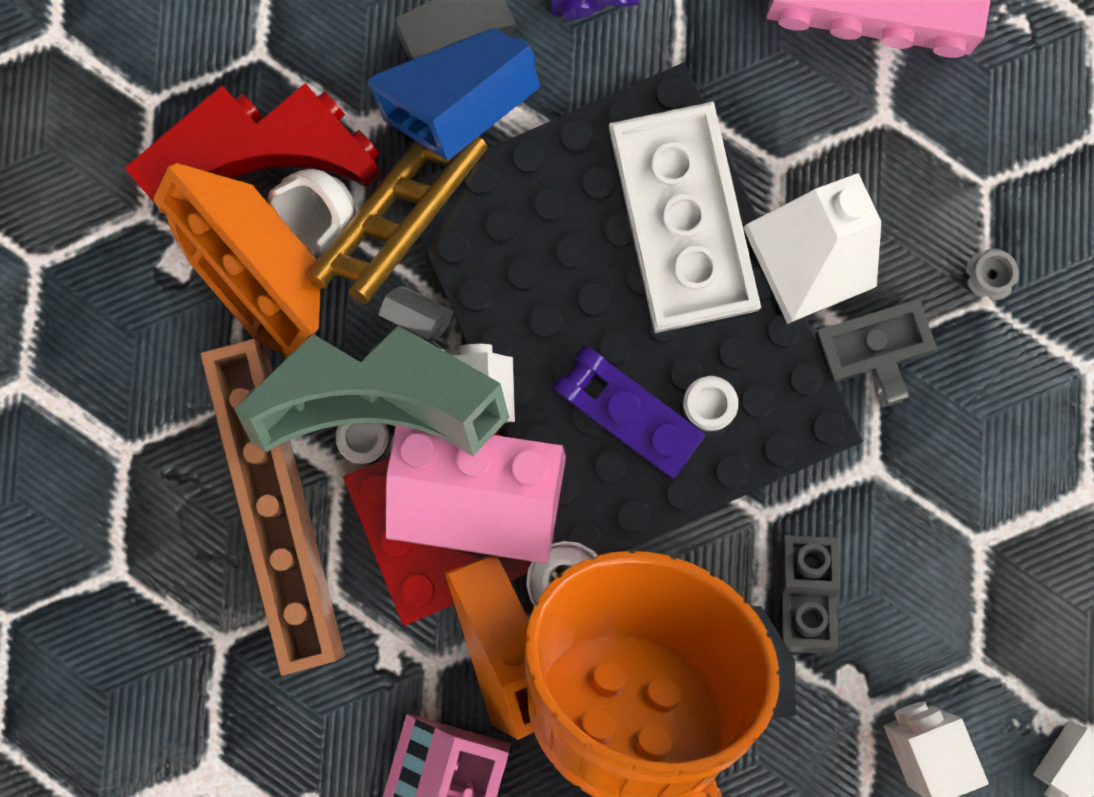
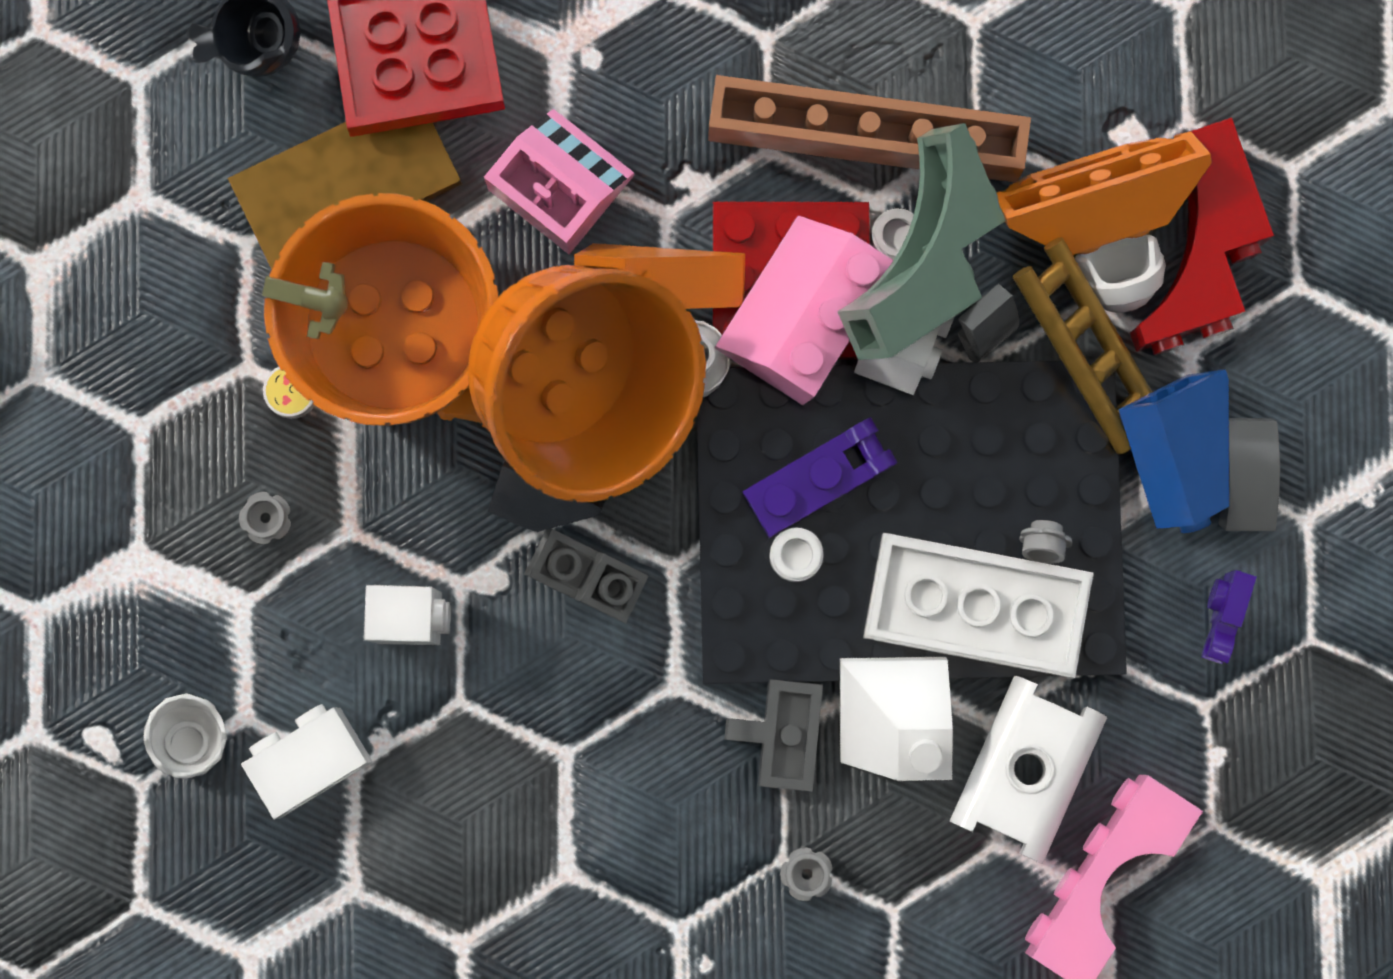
camera: 105 degrees right, 0 degrees up
(600, 178) = (1045, 542): none -> light grey plate
(845, 94) = (1059, 742): none -> white piece

